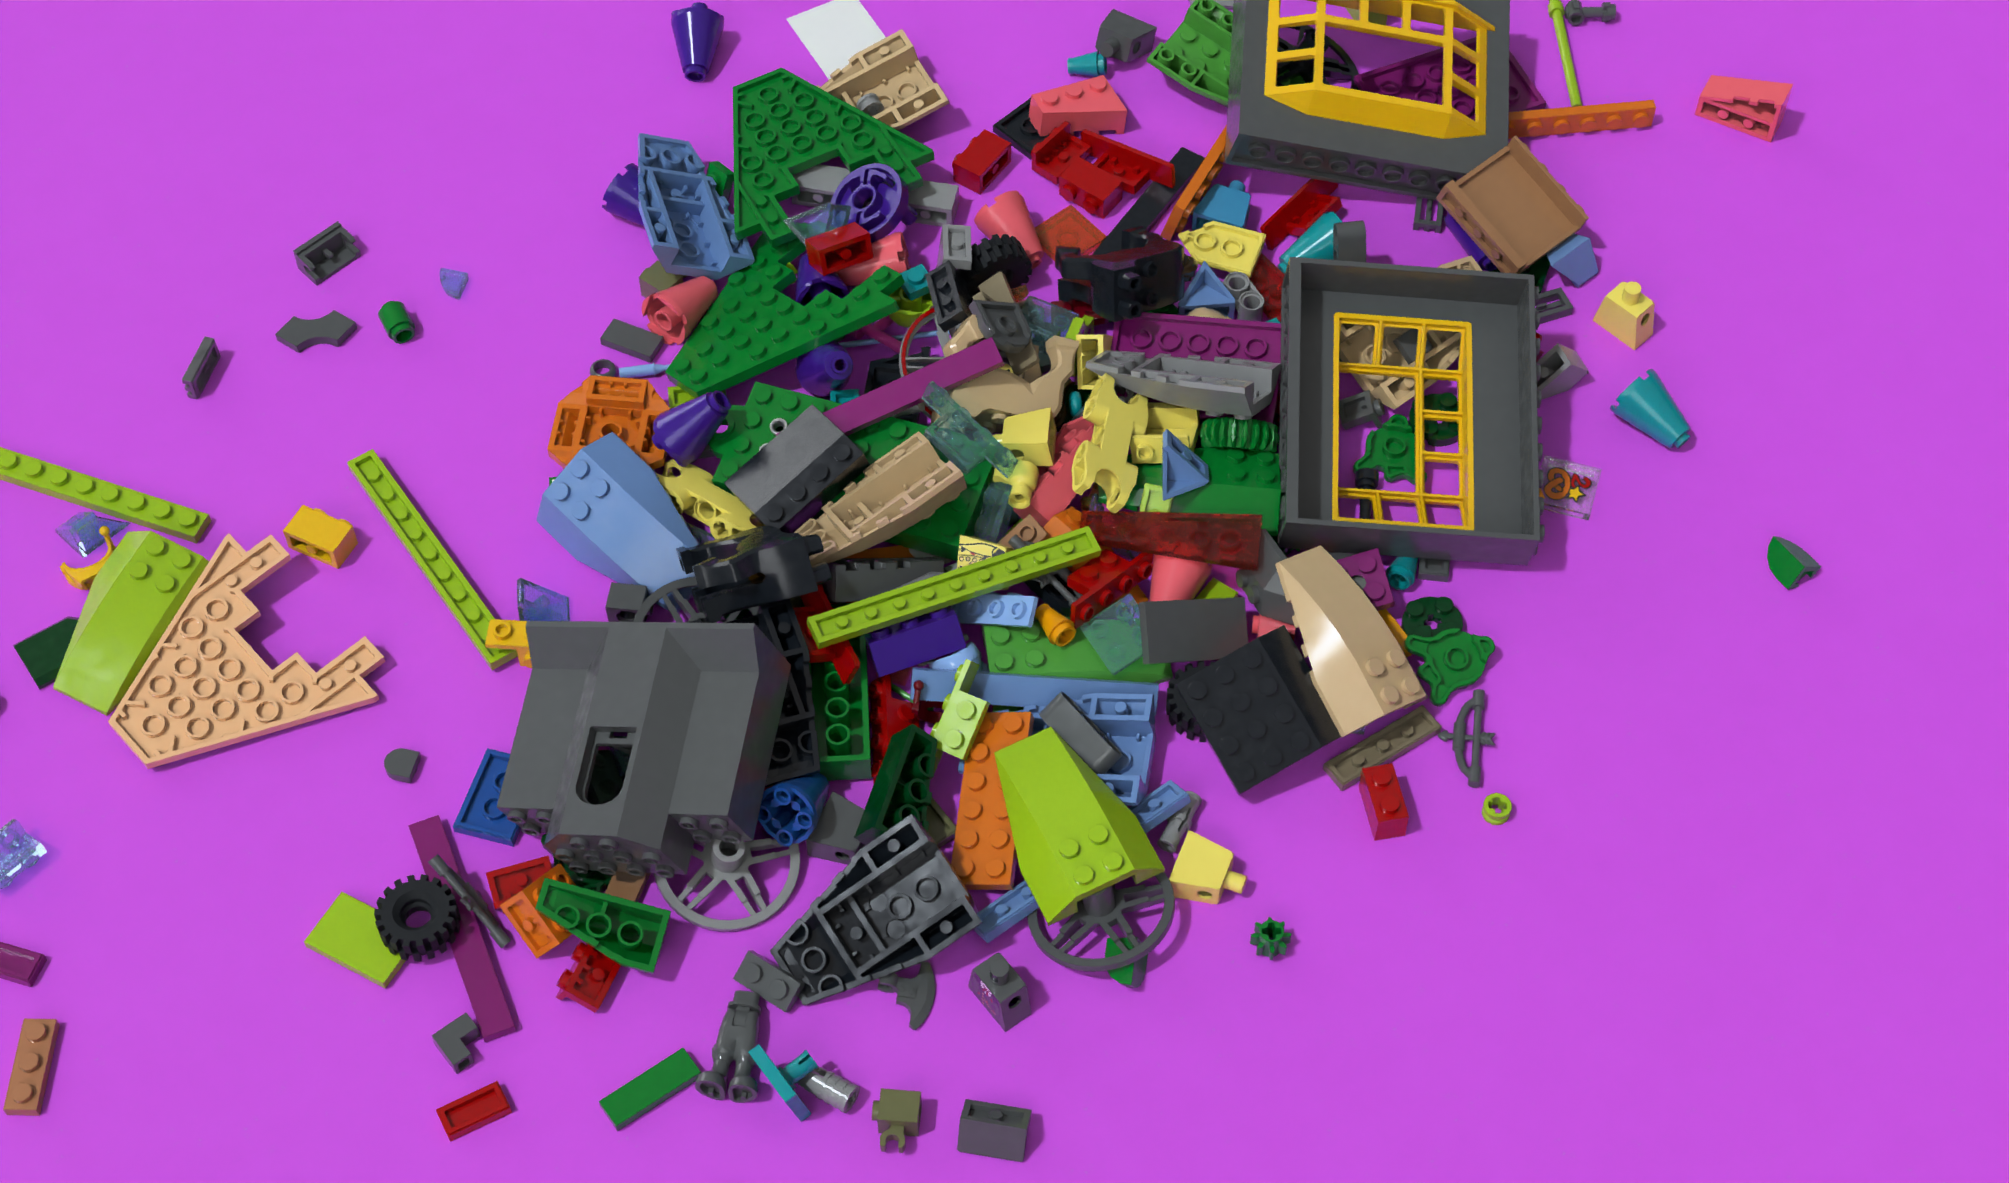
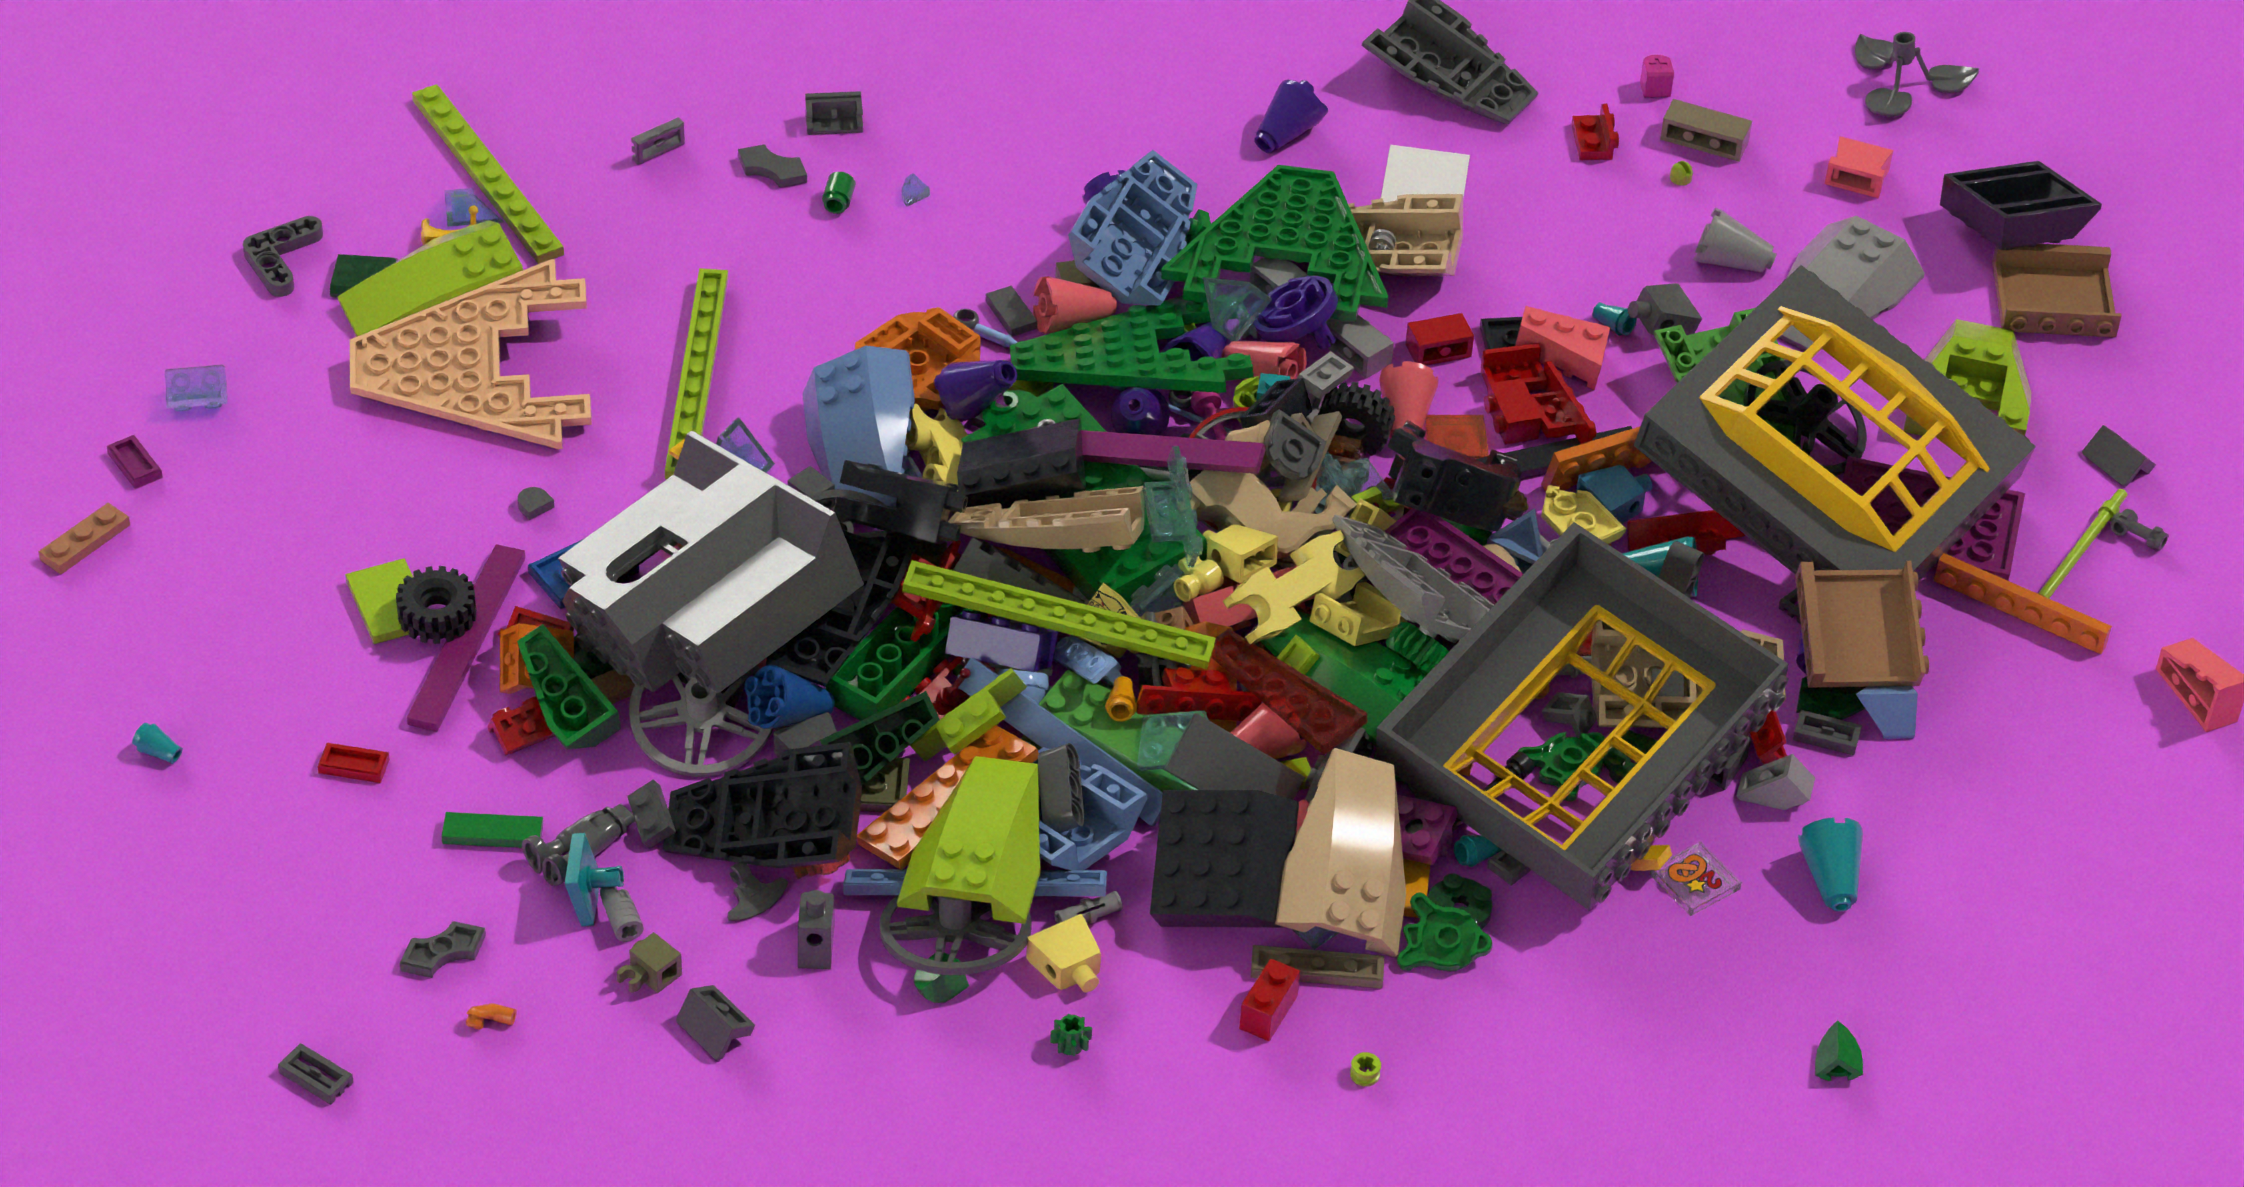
camera: 35 degrees right, 10 degrees down
(320, 536) = (629, 309): yellow brick -> none
(453, 1039) = (385, 706): dark grey piece -> none
(471, 899) = (487, 616): dark grey piece -> none
(839, 248) = (1230, 325): red brick -> none
(1180, 467) = (1332, 636): medium blue slope -> none
(1477, 703) = (1374, 1032): dark grey piece -> none
(1627, 314) = (1894, 766): light yellow torso -> none

